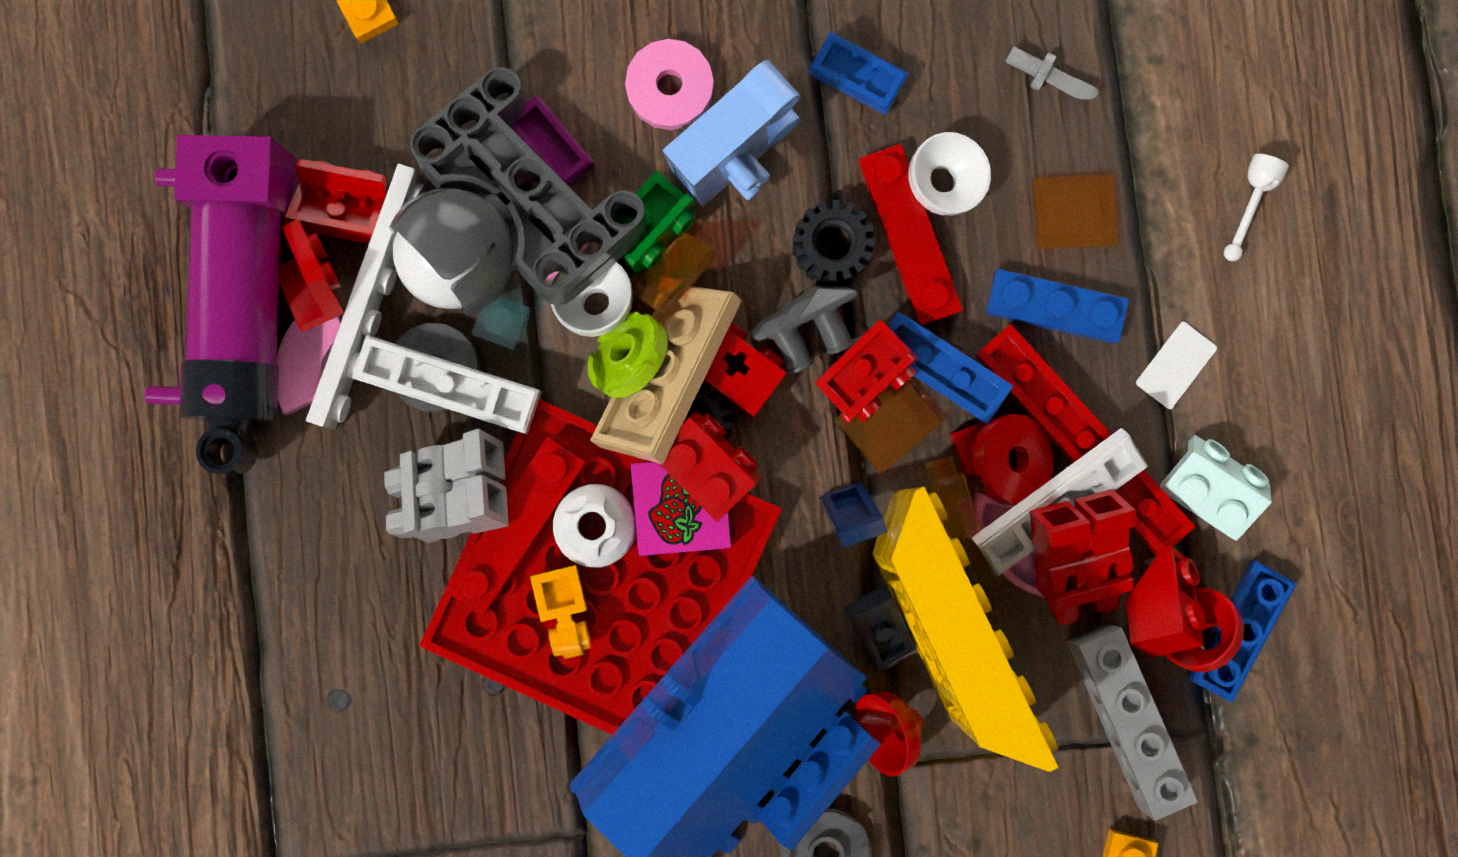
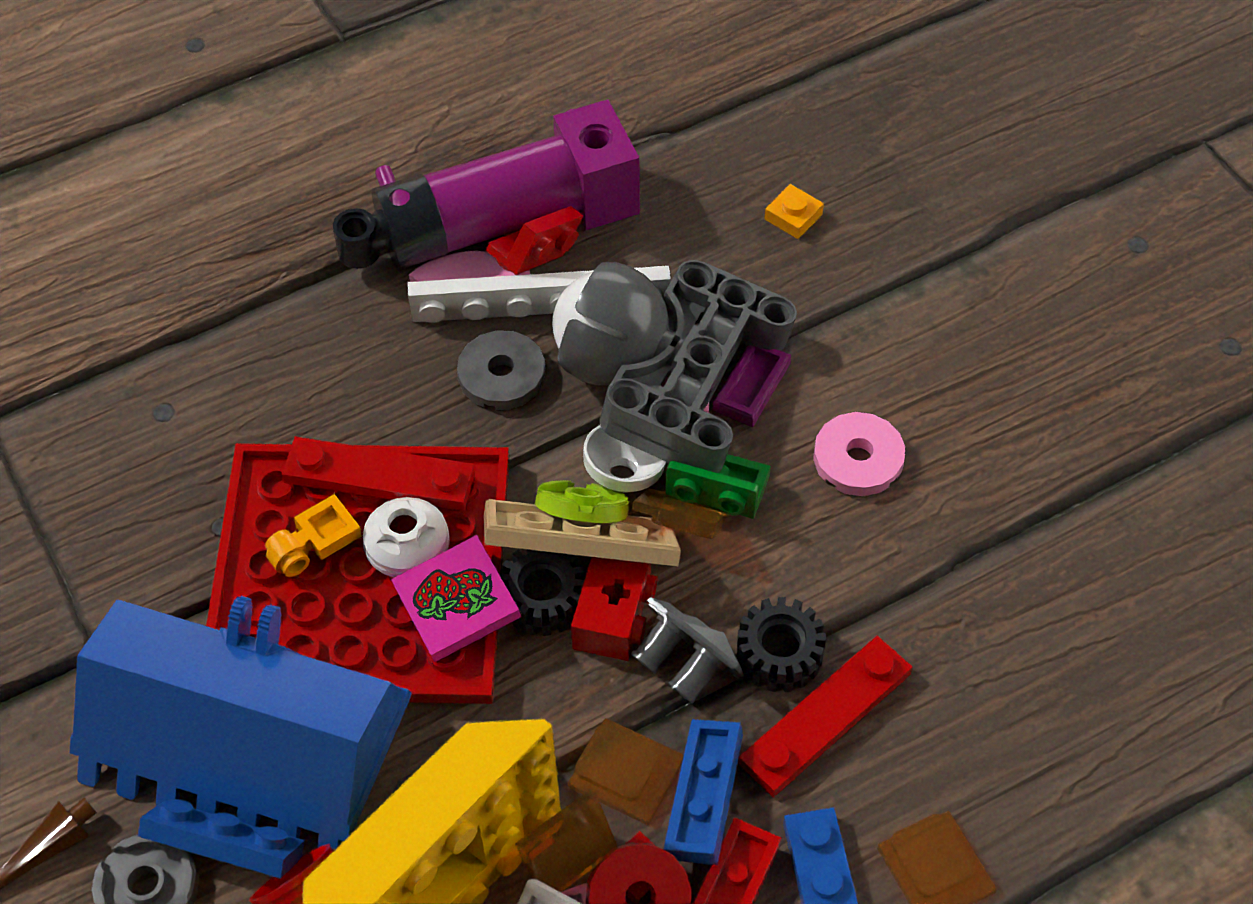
camera: 65 degrees right, 30 degrees down
(337, 200) = (615, 237): red bracket -> none
(446, 384) = (488, 376): white plate -> none
(449, 489) = (393, 409): light grey hips -> none
(502, 323) = (568, 405): clear light blue plate -> none
(710, 466) = (505, 597): red bracket -> none
(732, 136) = (830, 498): light blue piece -> none
(858, 73) = (960, 603): blue plate -> none
(868, 372) = (663, 715): red bracket -> none
(963, 161) = (918, 699): white piece -> none
(1043, 71) = (1064, 776): light grey piece -> none

